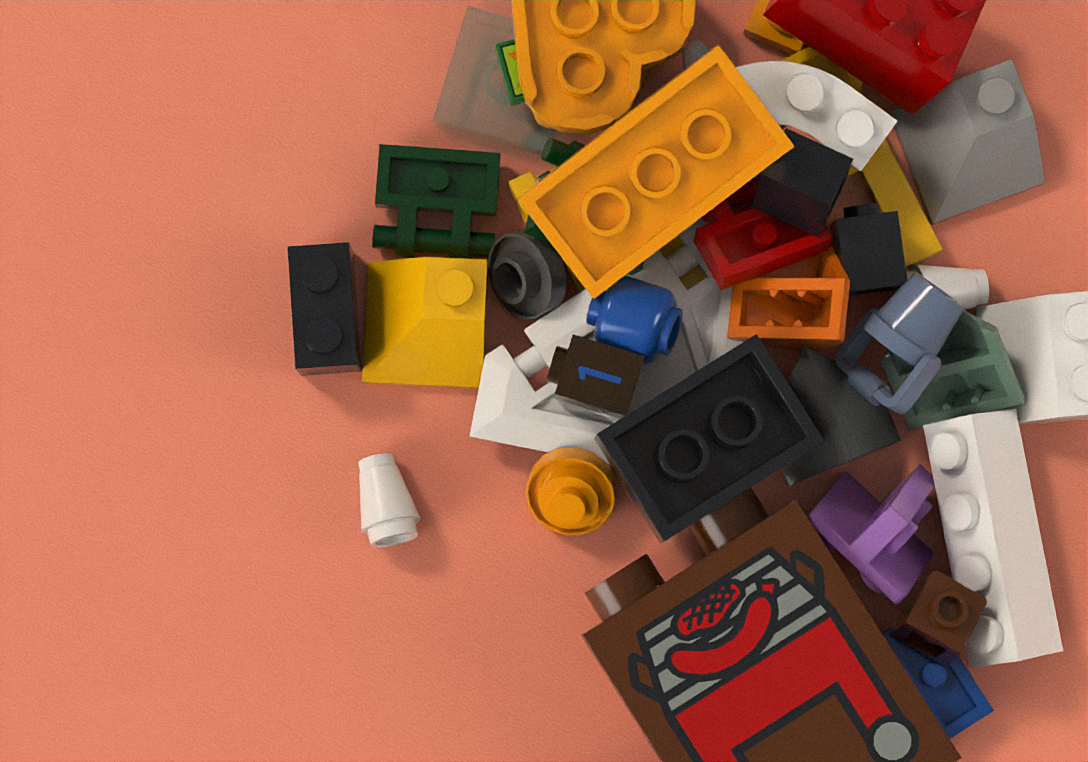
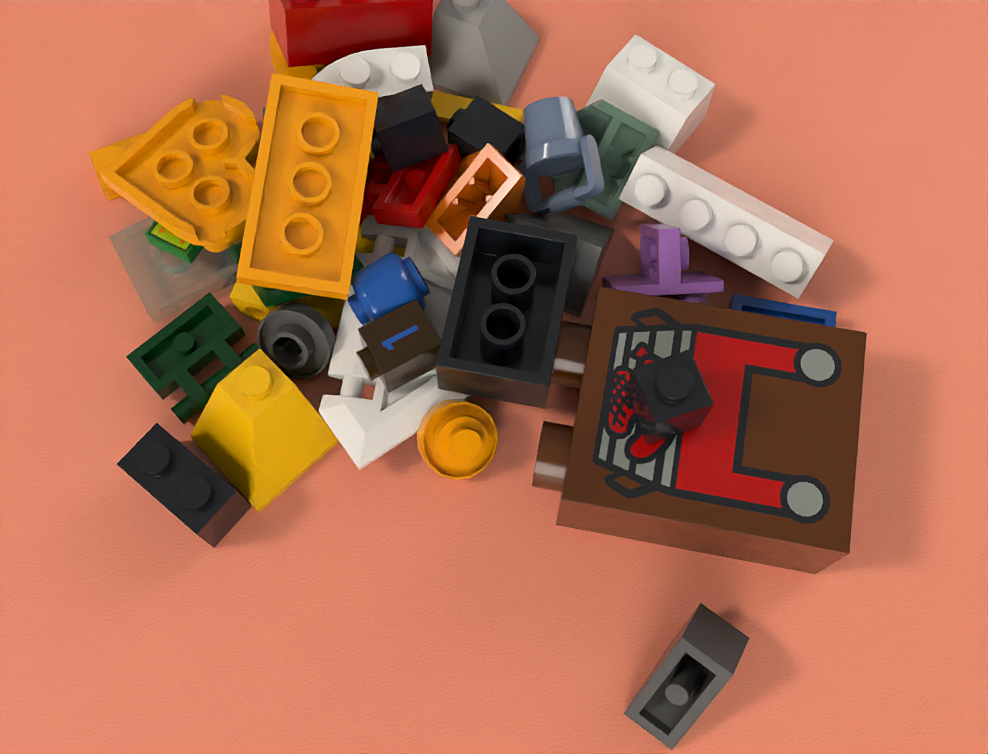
camera: 45 degrees left, 15 degrees down
(385, 502) = (348, 567): white cone -> none
(736, 648) = (668, 396): none -> black brick
(940, 619) = (757, 278): reddish brown bracket -> none

